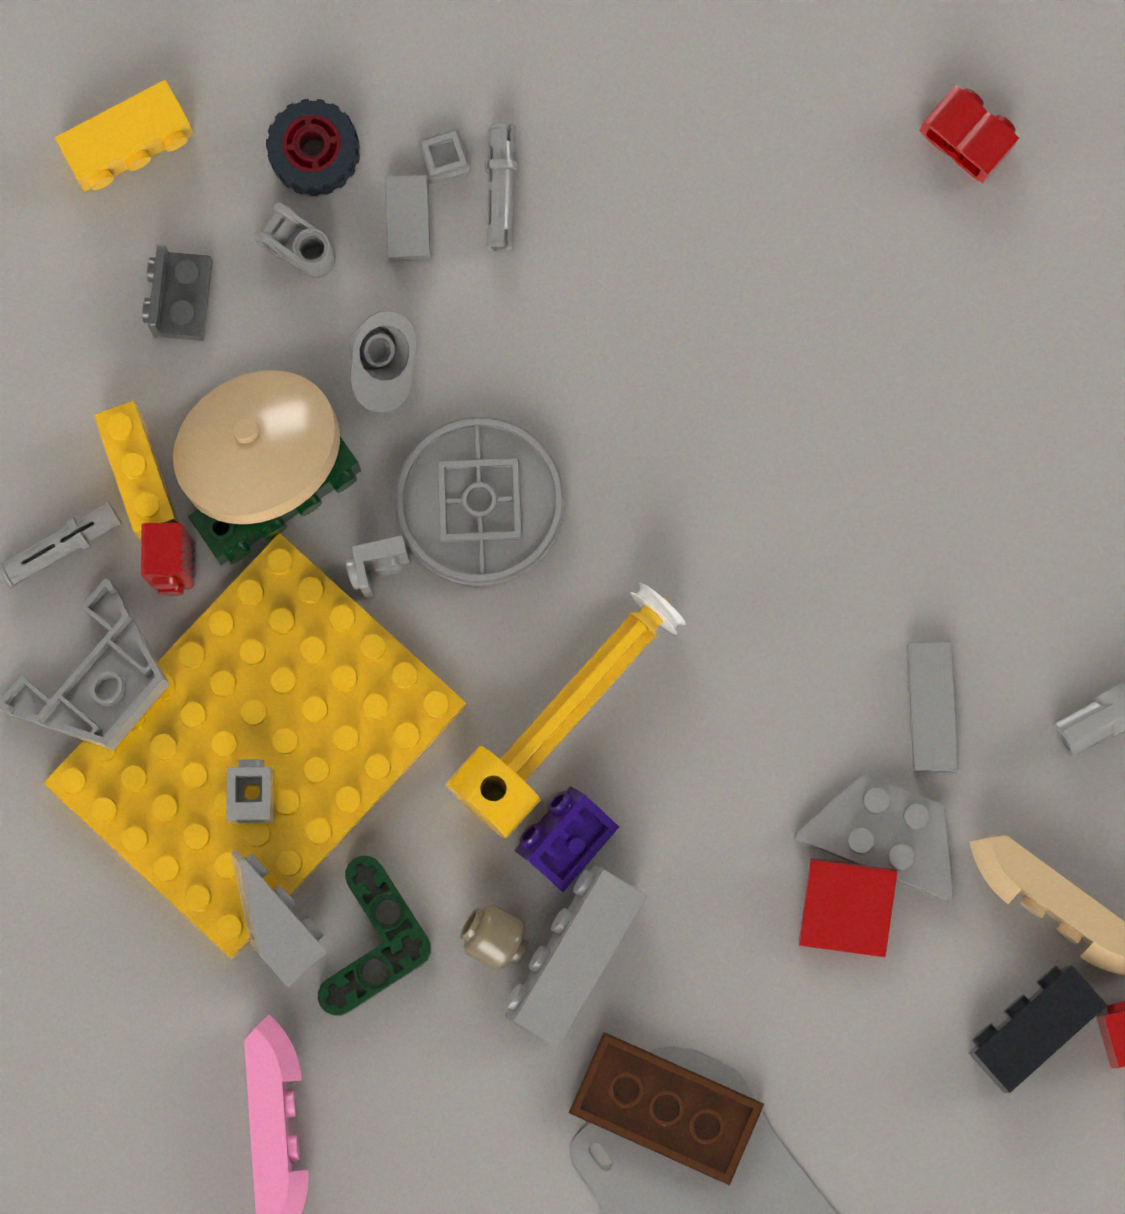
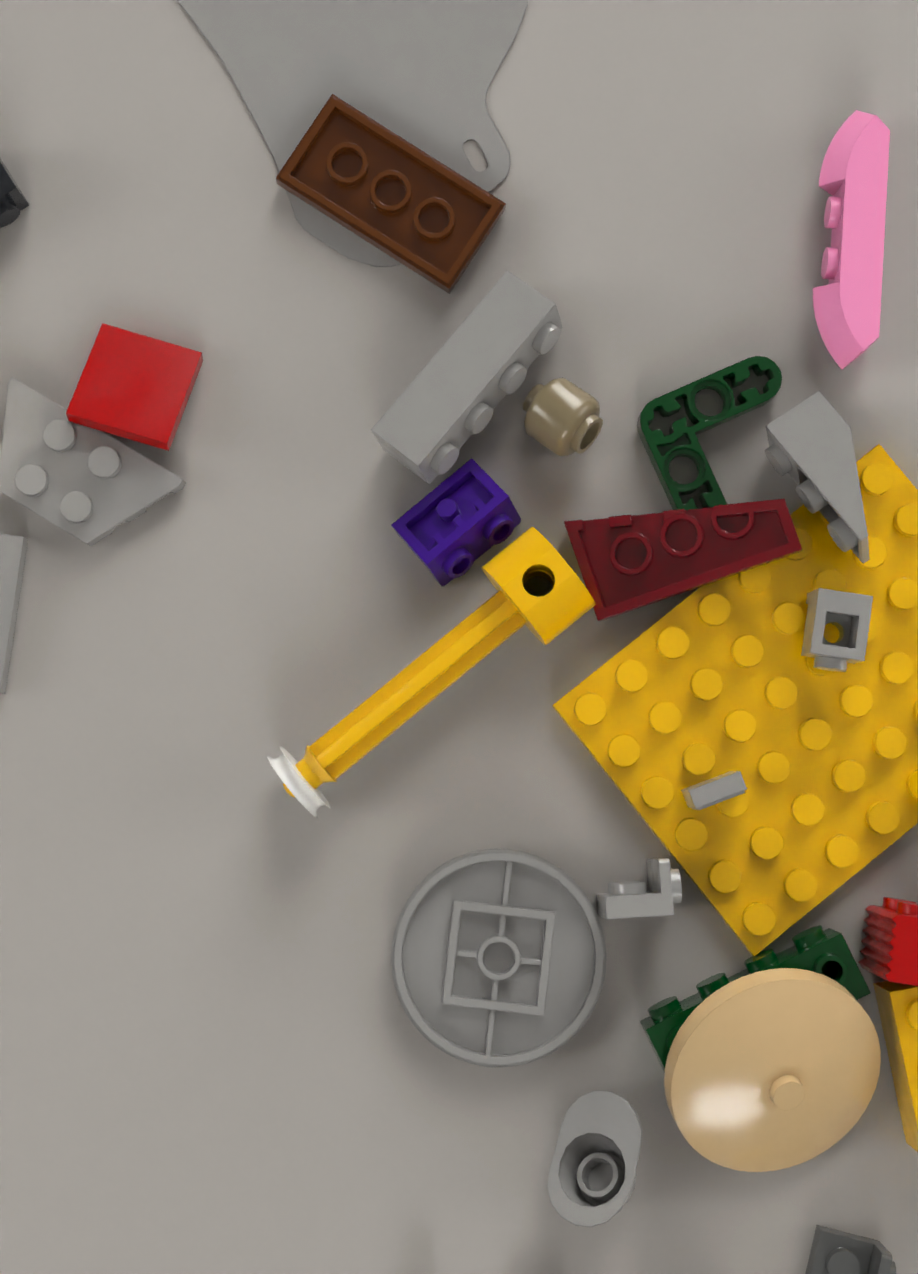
camera: 175 degrees left, 5 degrees up
(330, 651) = (714, 790): none -> light grey tile
(390, 838) = (667, 553): none -> dark red wing

